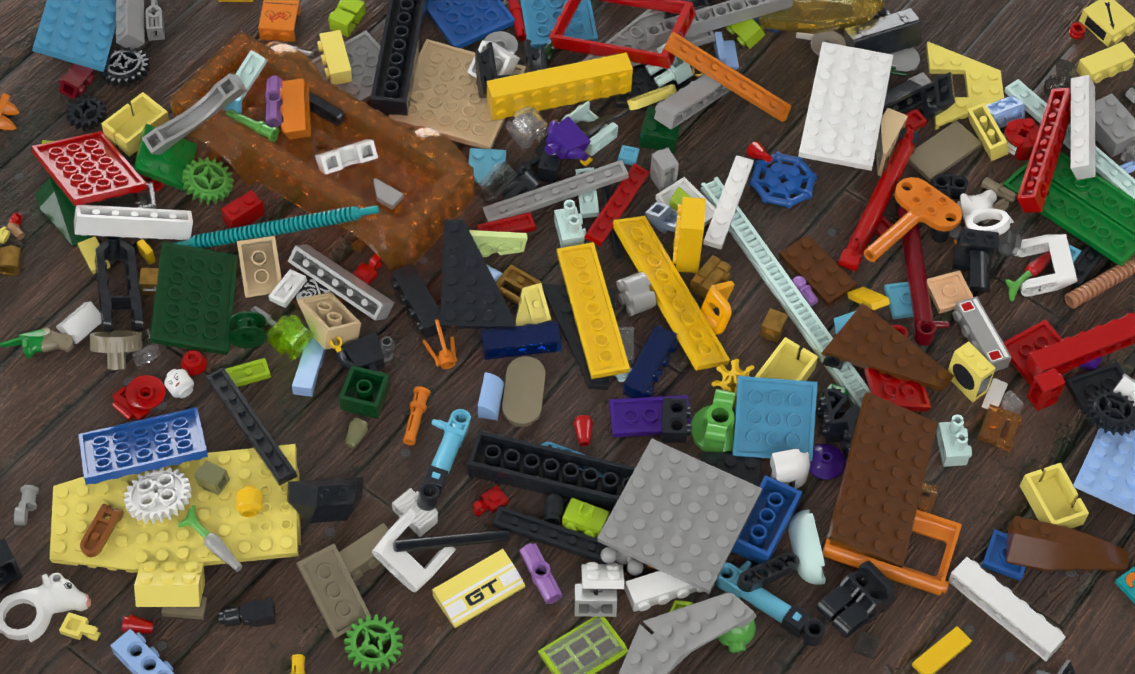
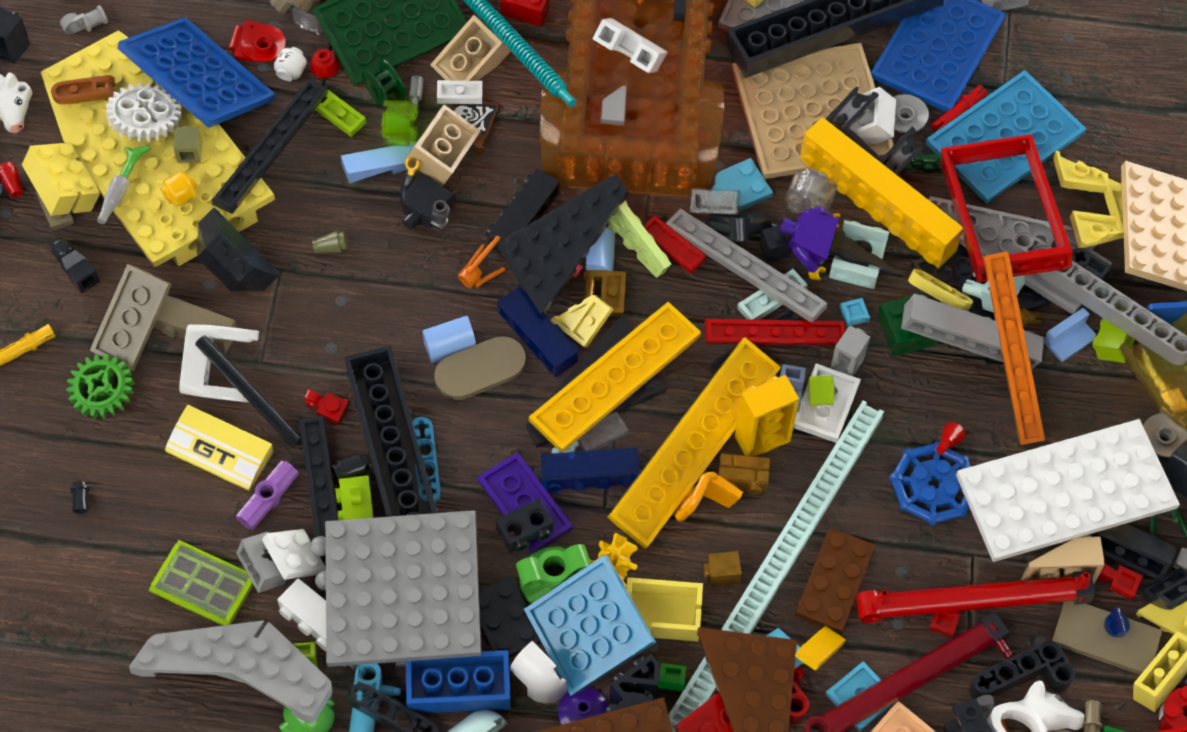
camera: 60 degrees right, 5 degrees up
(341, 282) = (496, 132): light grey brick -> none
(364, 392) = (378, 223): dark green brick -> none
(368, 272) = (526, 150): red plate -> none
(417, 408) = (394, 282): orange pin -> none
(423, 519) = (271, 344): white brick -> none
(438, 471) = (311, 337): medium azure piece -> none
(569, 224) = (712, 301): light aqua brick -> none
(583, 429) = (466, 447): red cone -> none
(636, 293) = (664, 407): light grey brick -> none
(728, 202) = (854, 439): white plate -> none
(805, 290) = (800, 569): medium lavender axle -> none
(923, 205) = (992, 648): orange piece -> none
(941, 138) = (1116, 623): none -> clear blue plate

